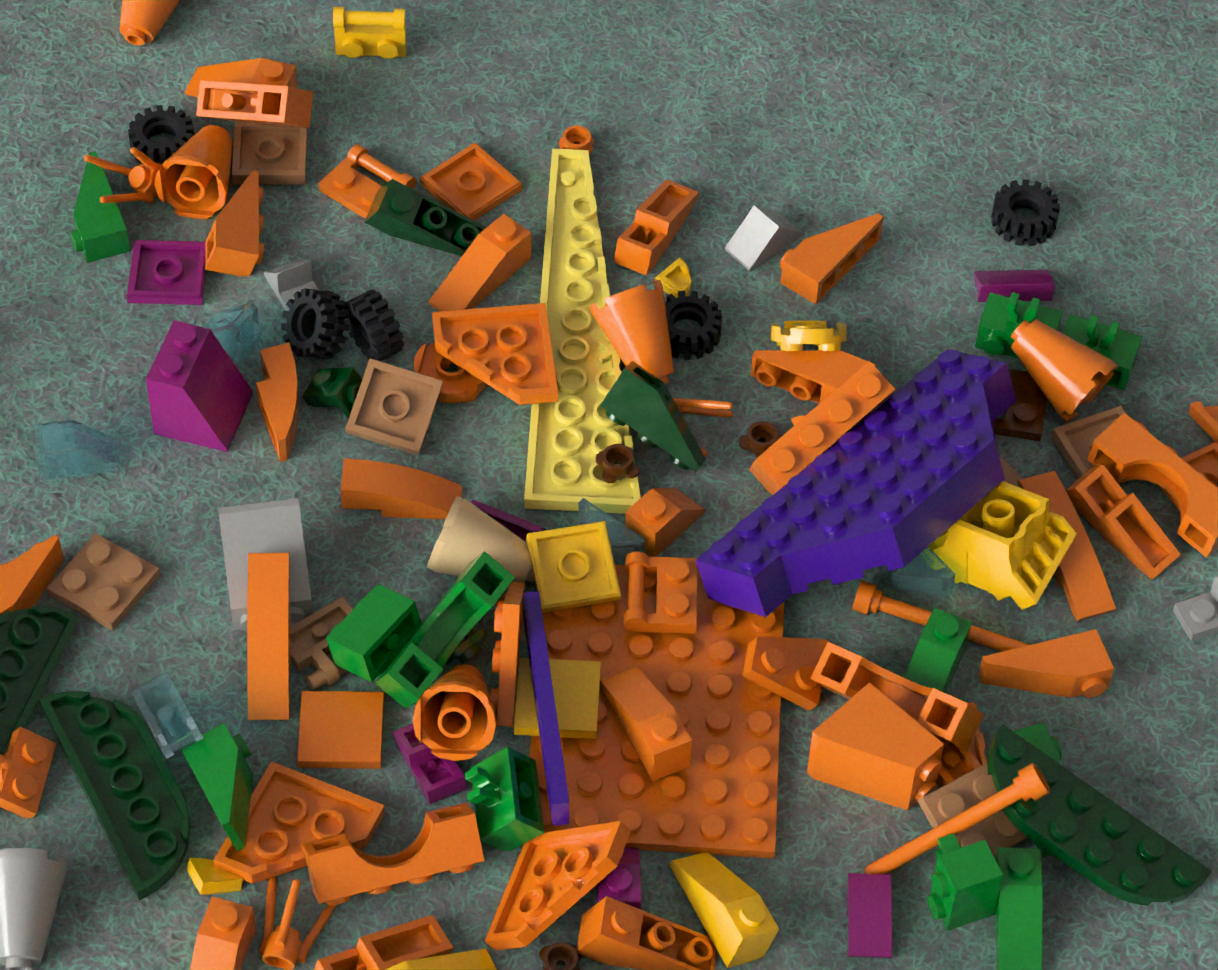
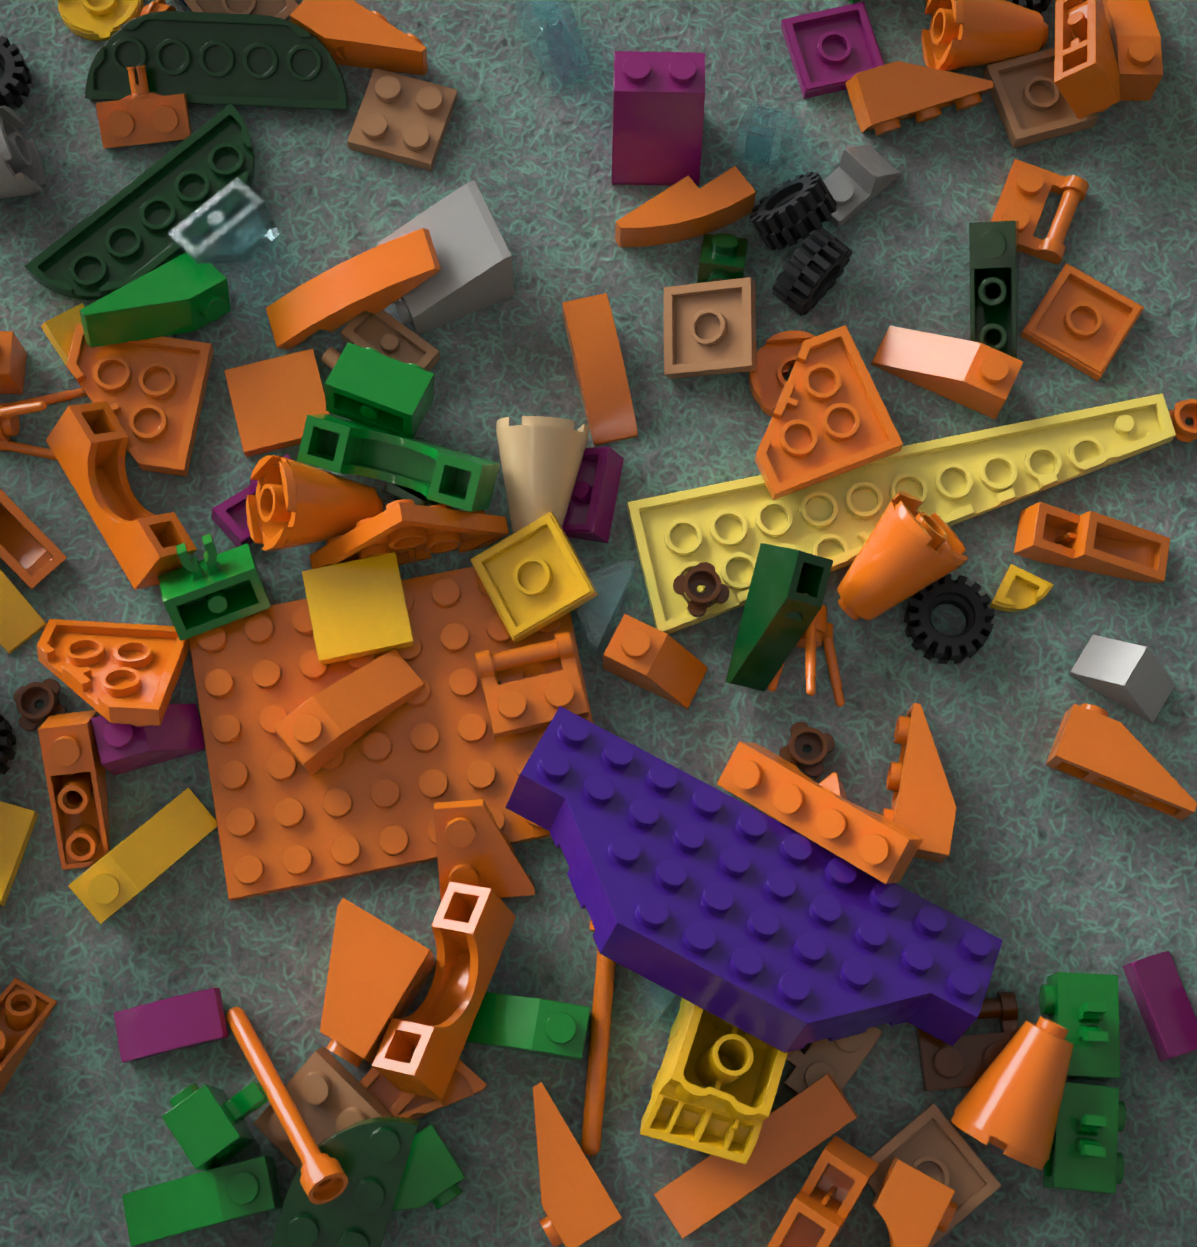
camera: 75 degrees right, 20 degrees up
(545, 709) = (317, 594): dark purple tile -> none
(808, 332) = (974, 763): yellow plate -> none

